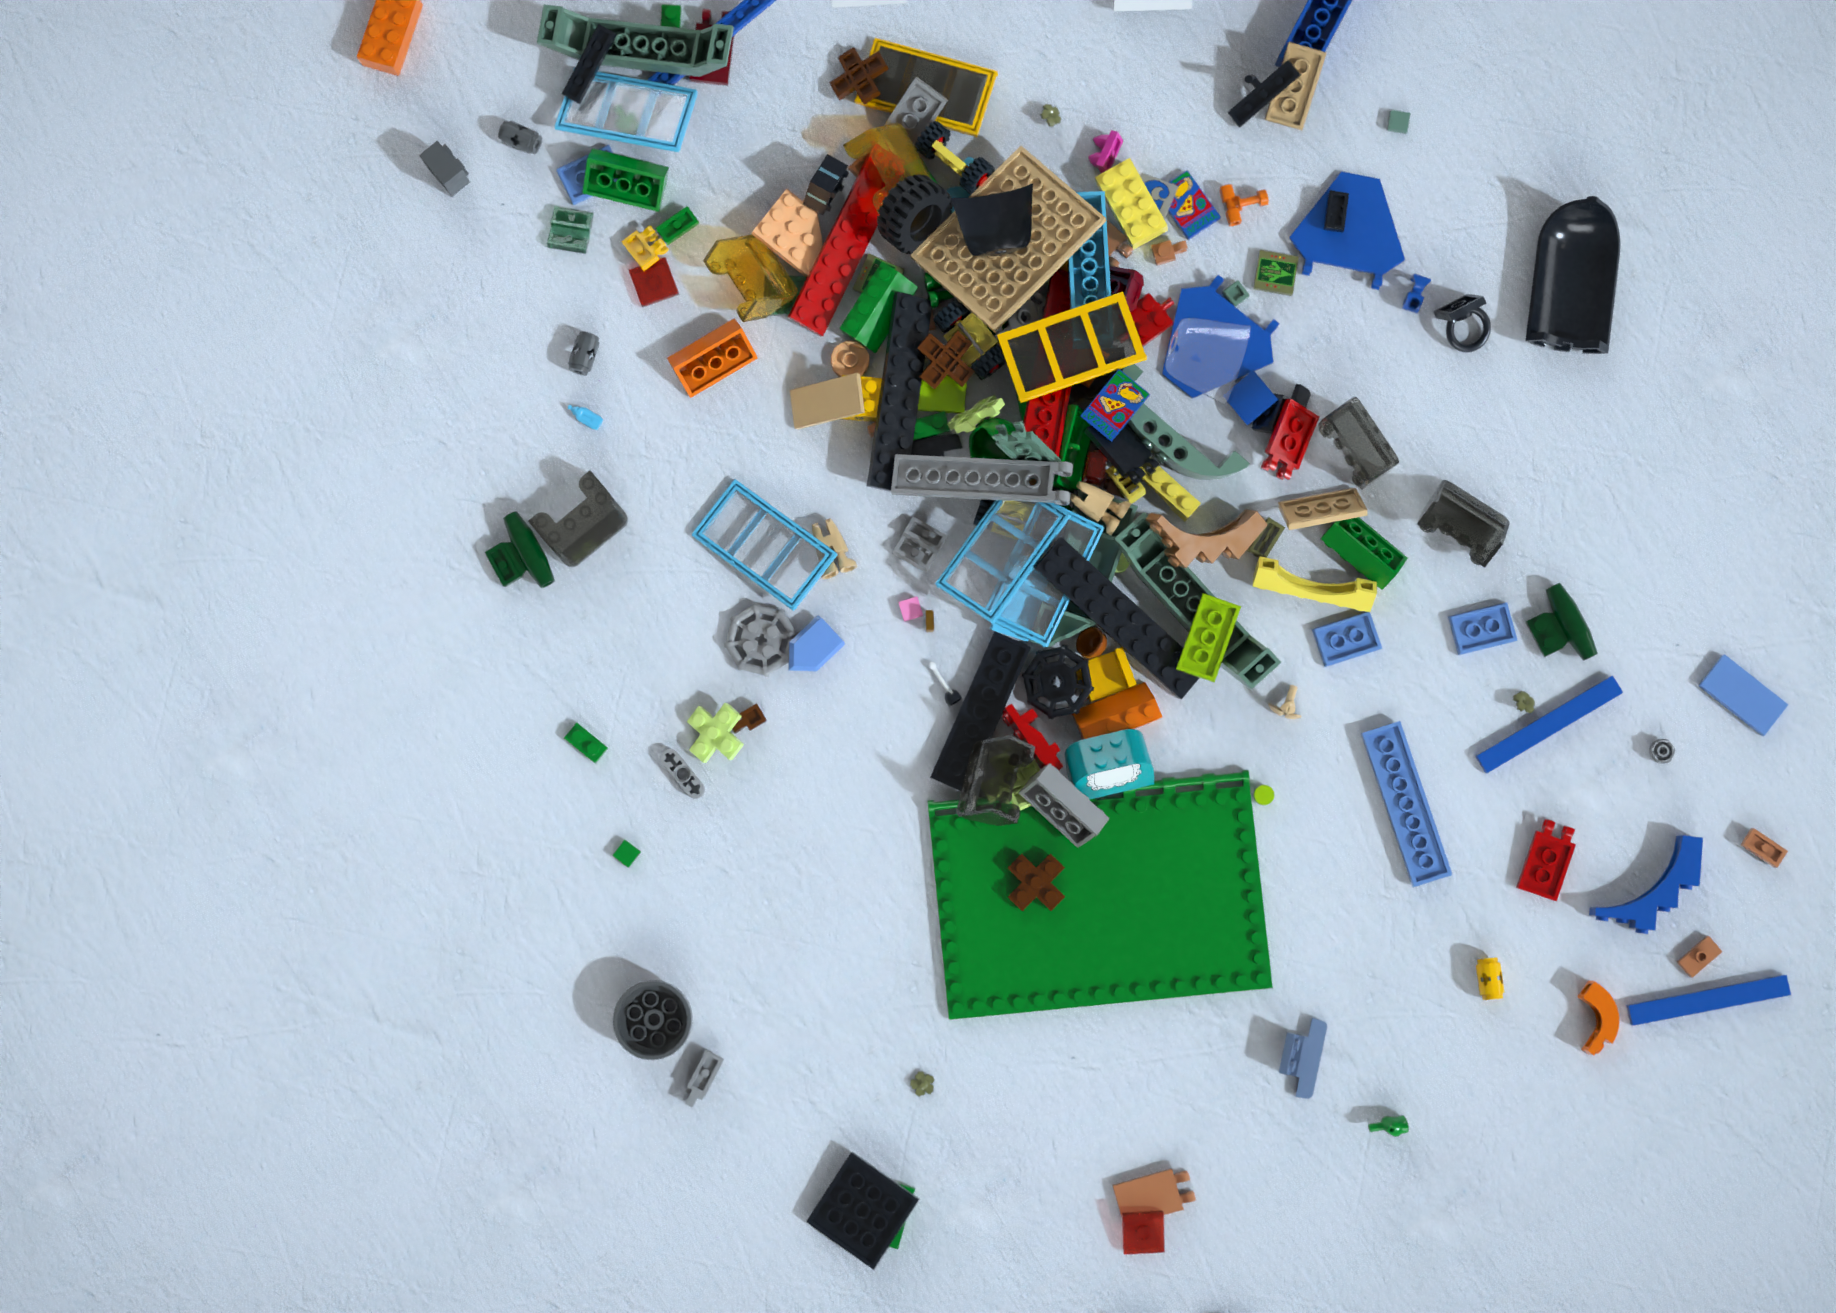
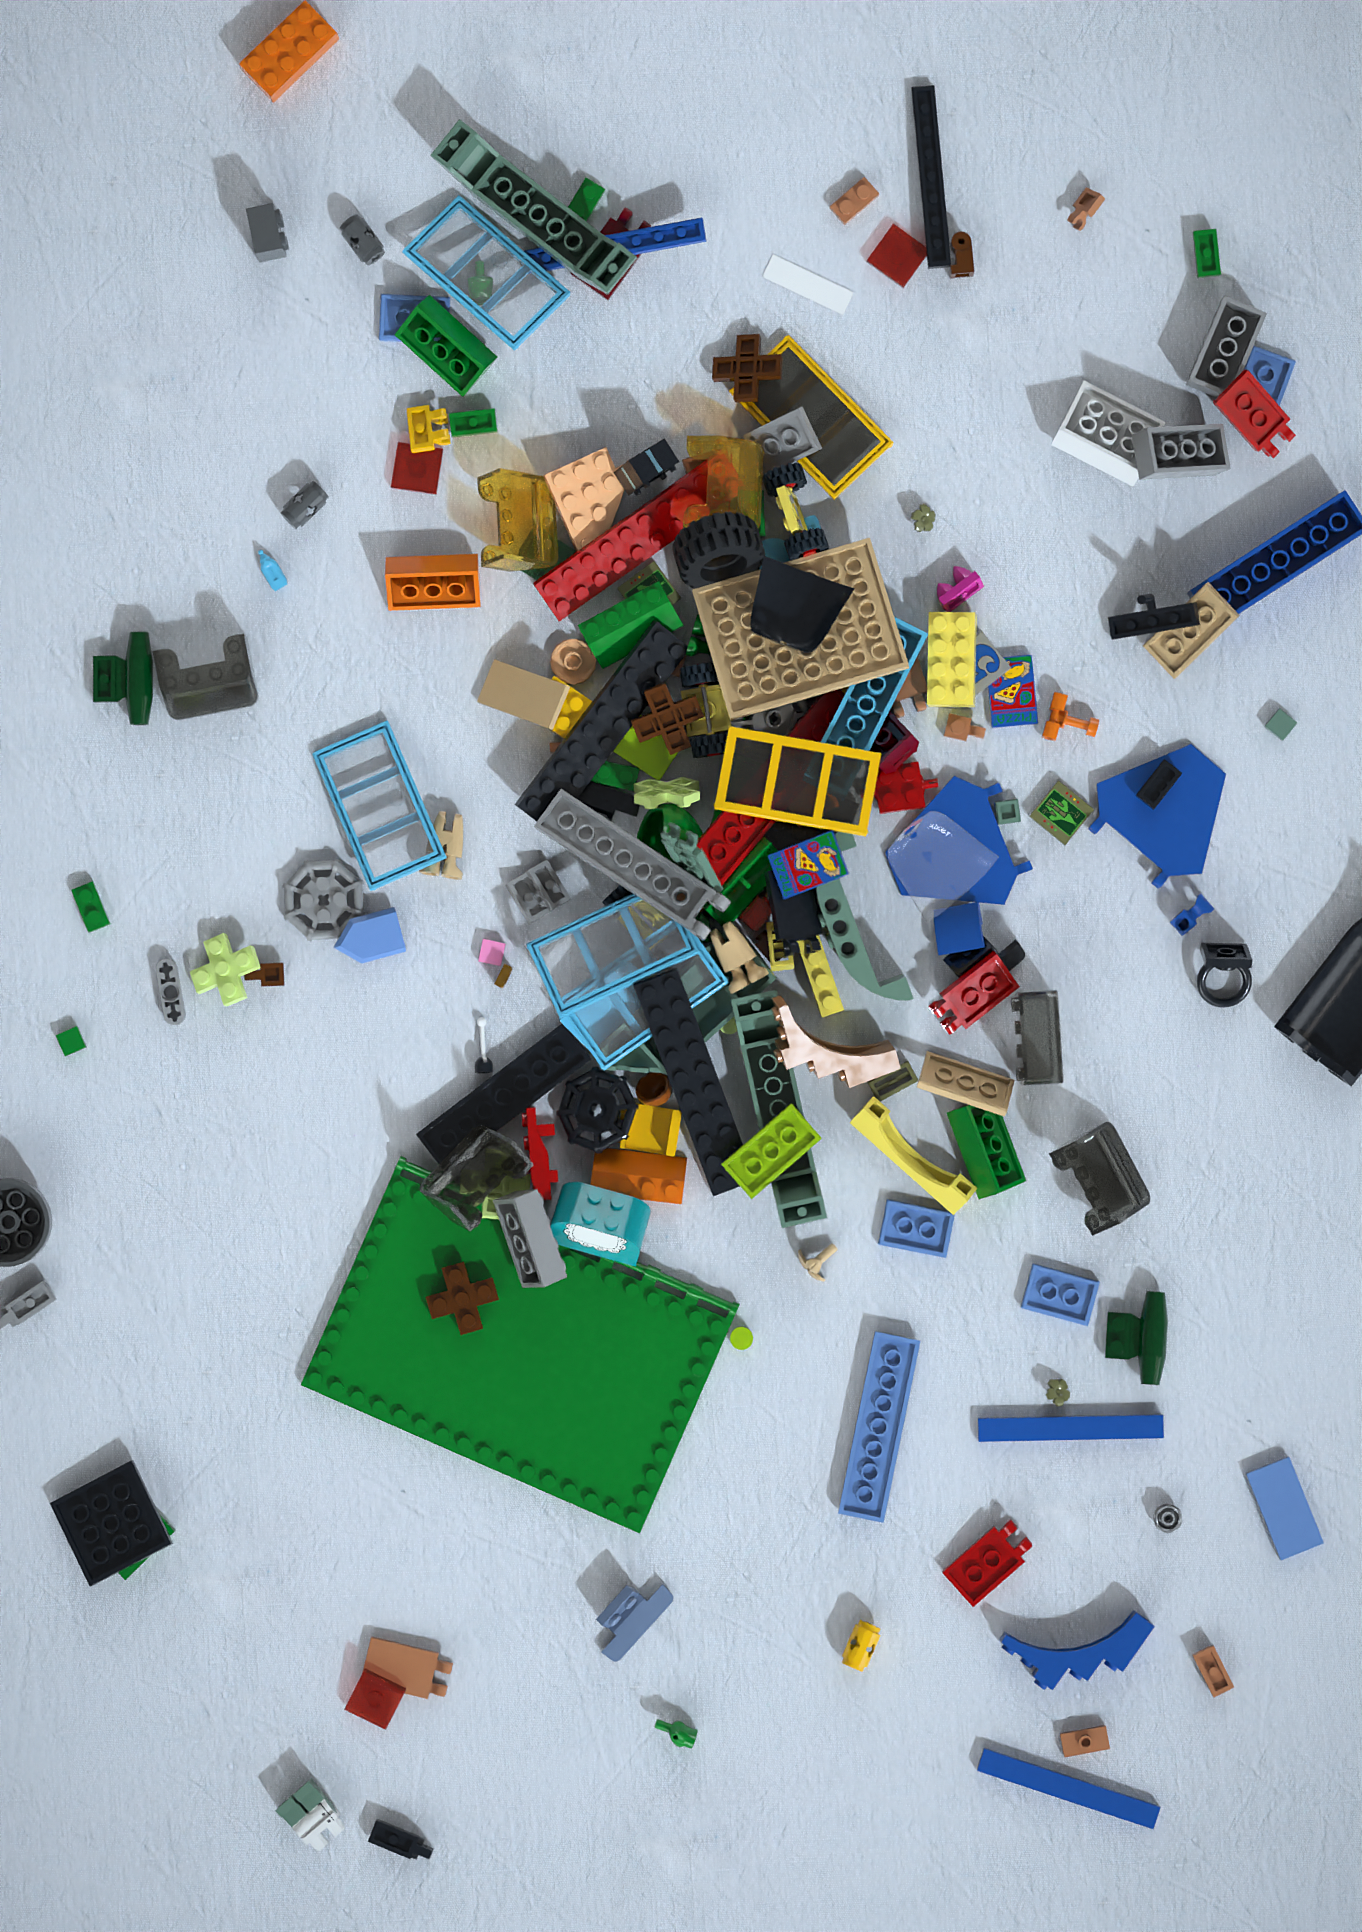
camera: 30 degrees right, 5 degrees up
(570, 230) = (361, 366): clear green slope -> none
(589, 64) = (473, 205): black tile -> none
(922, 1084) = (239, 1433): olive plant -> none
(1606, 1016) = (956, 1745): orange arch -> none

